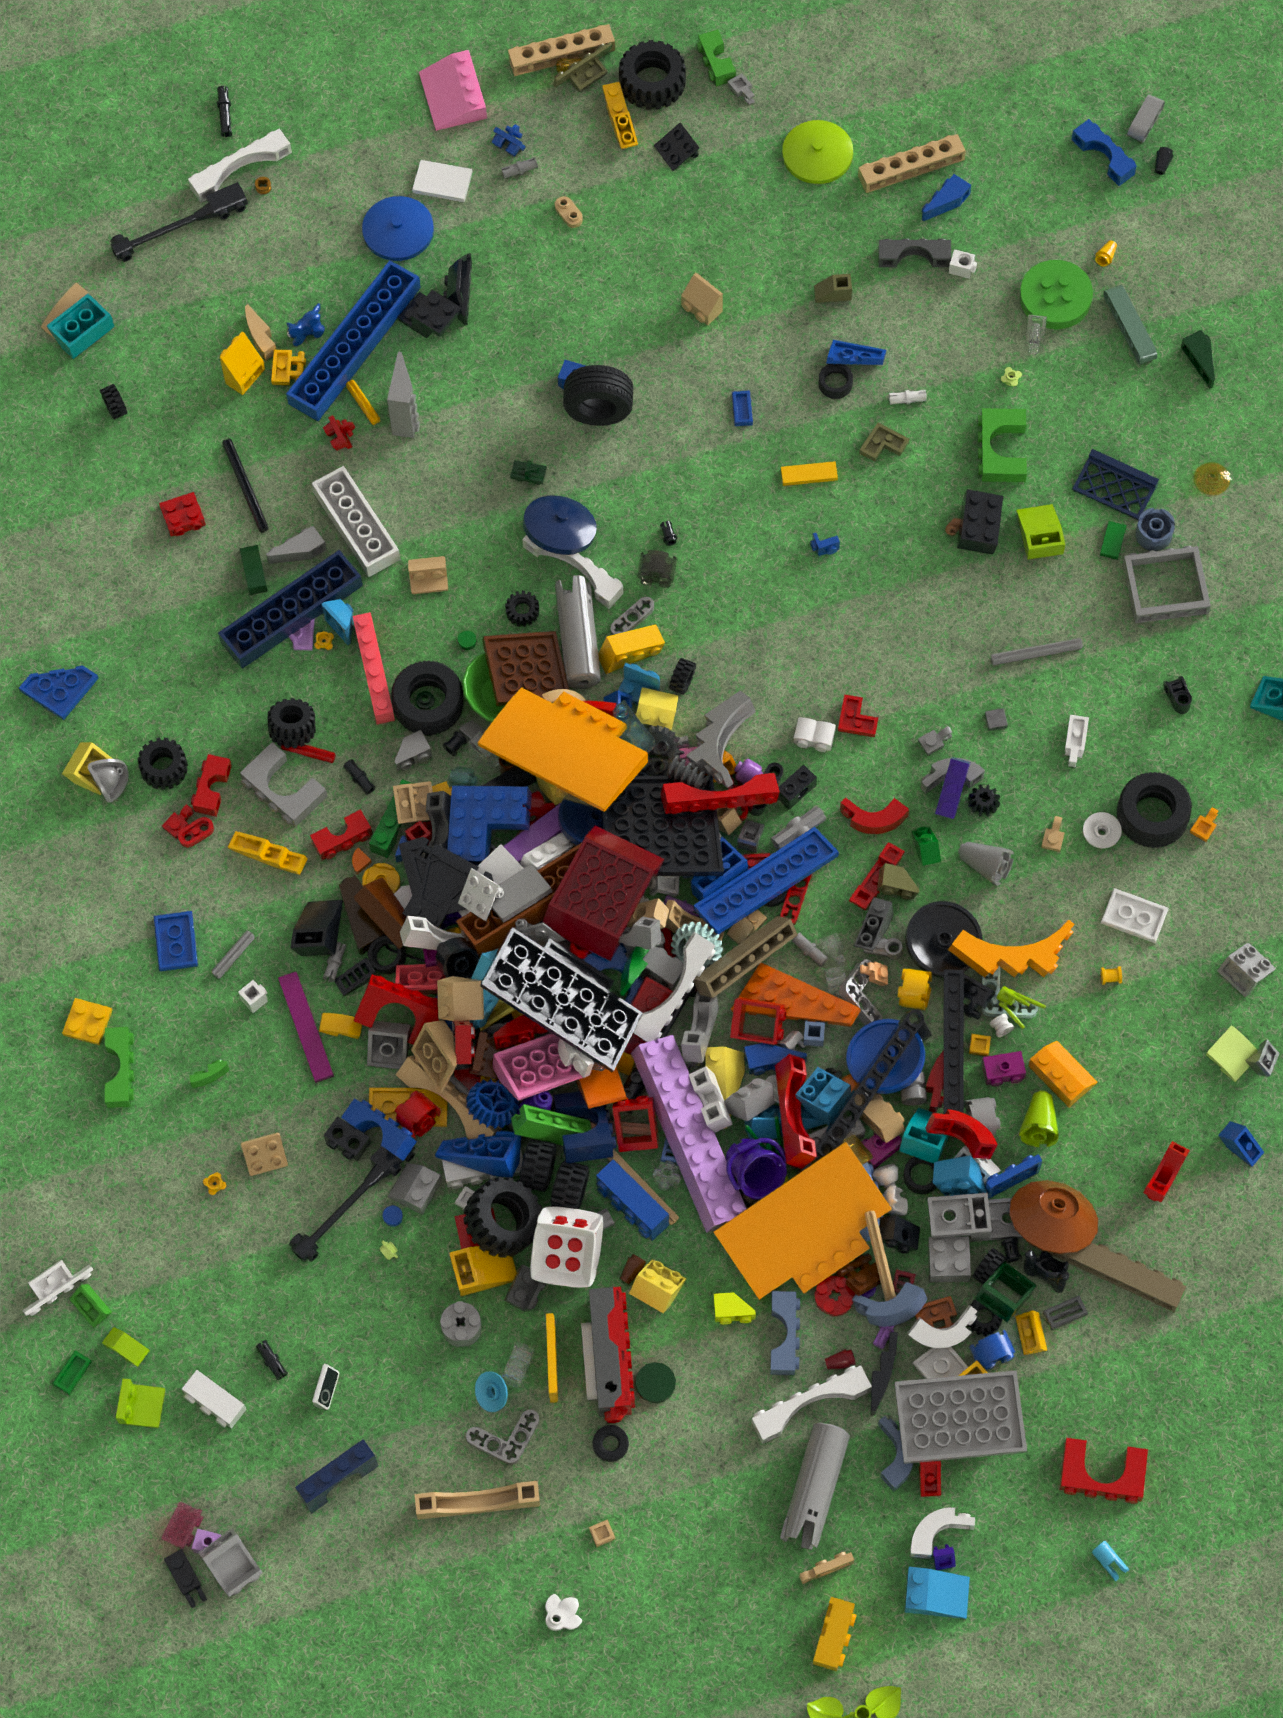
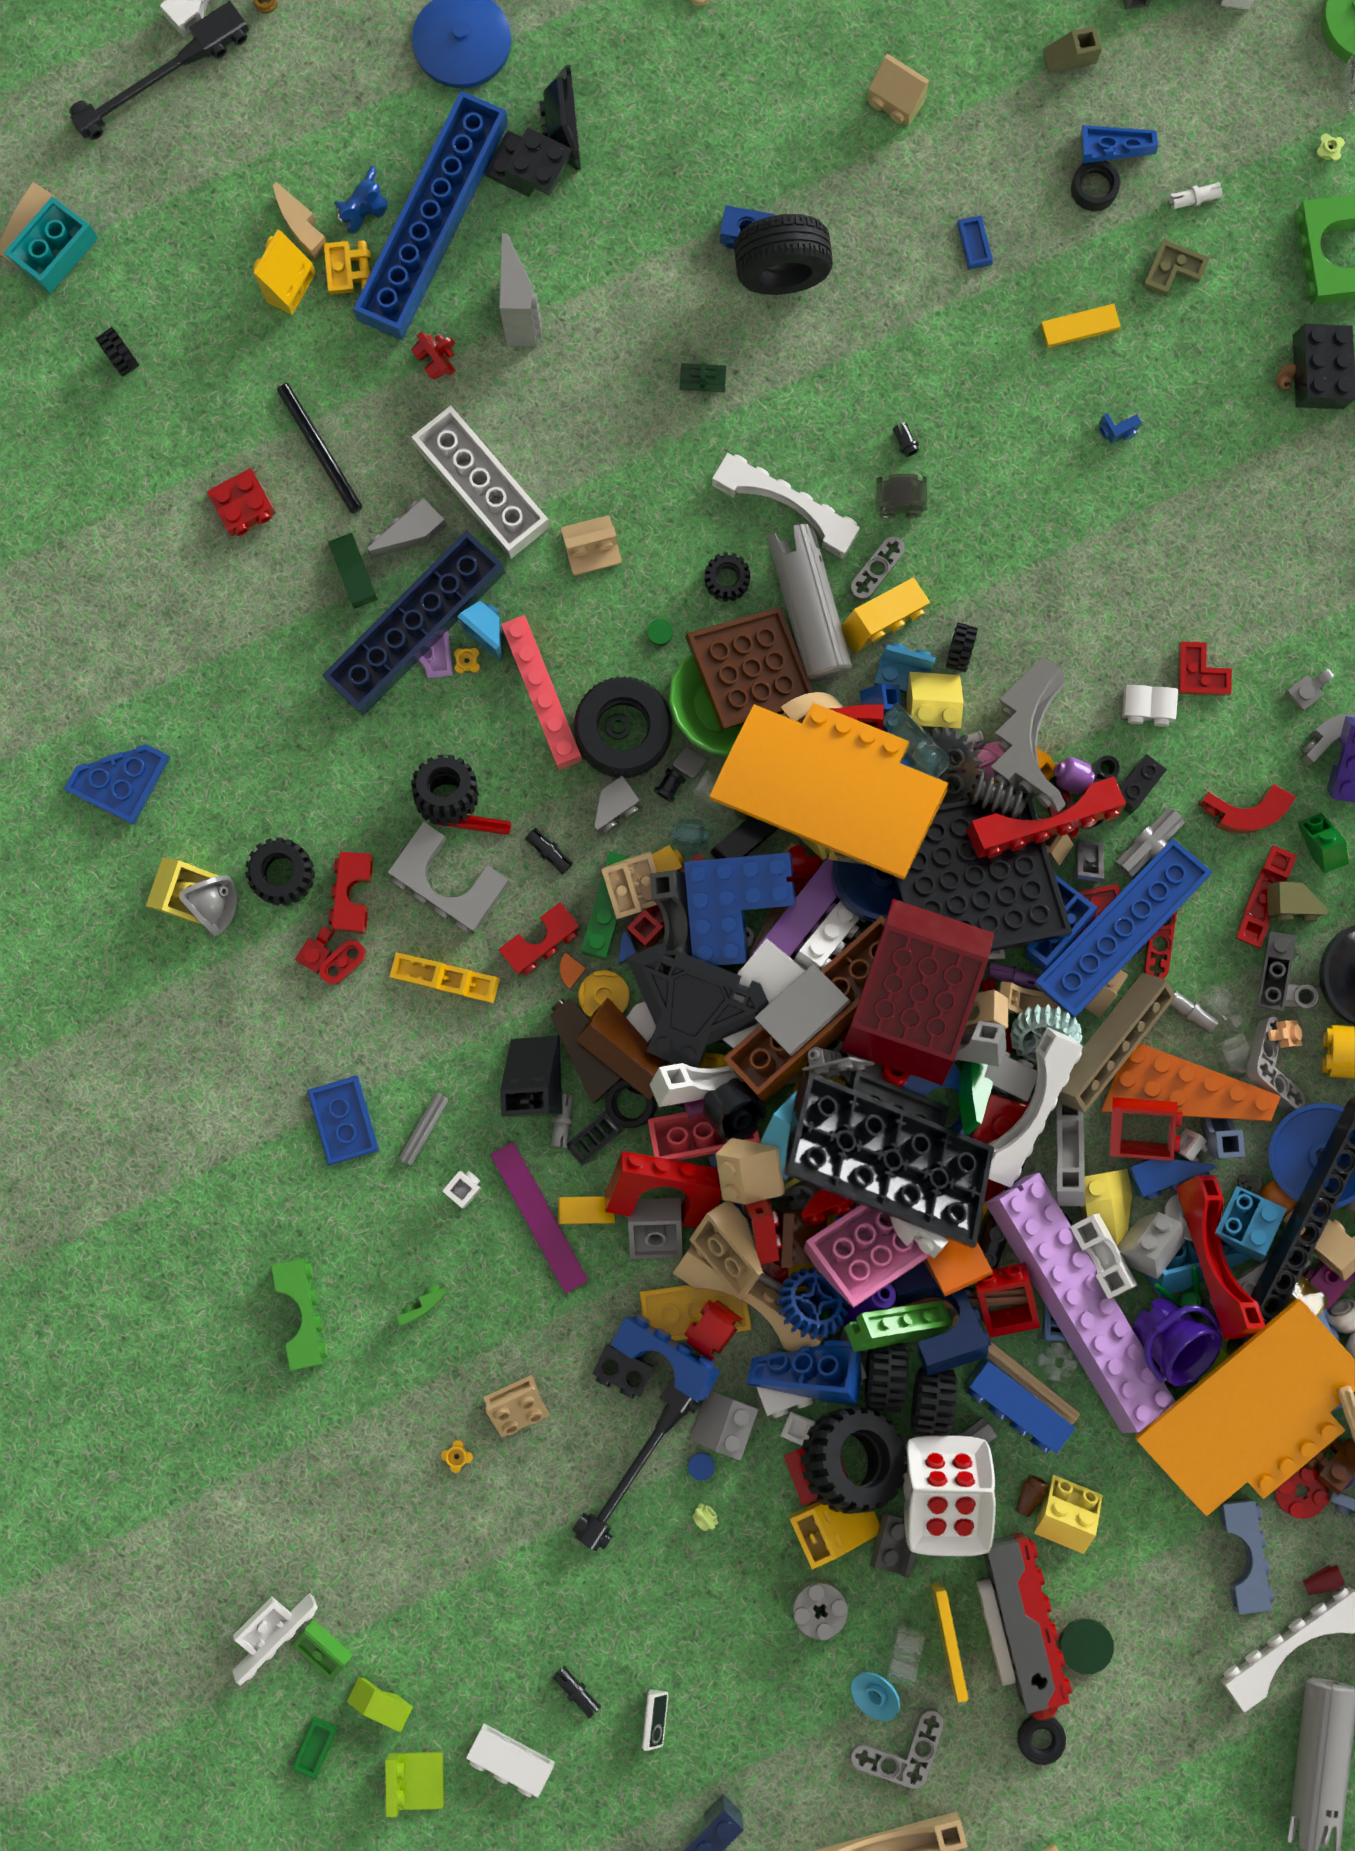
camera: 10 degrees left, 15 degrees up
(87, 1021) = (244, 1252): yellow plate -> none
(363, 402) = (458, 303): yellow axle -> none
(479, 894) = (751, 1019): white hinge -> none
(559, 525) = (758, 450): dark blue dish -> none
(730, 1308) = (1168, 1532): neon yellow slope -> none

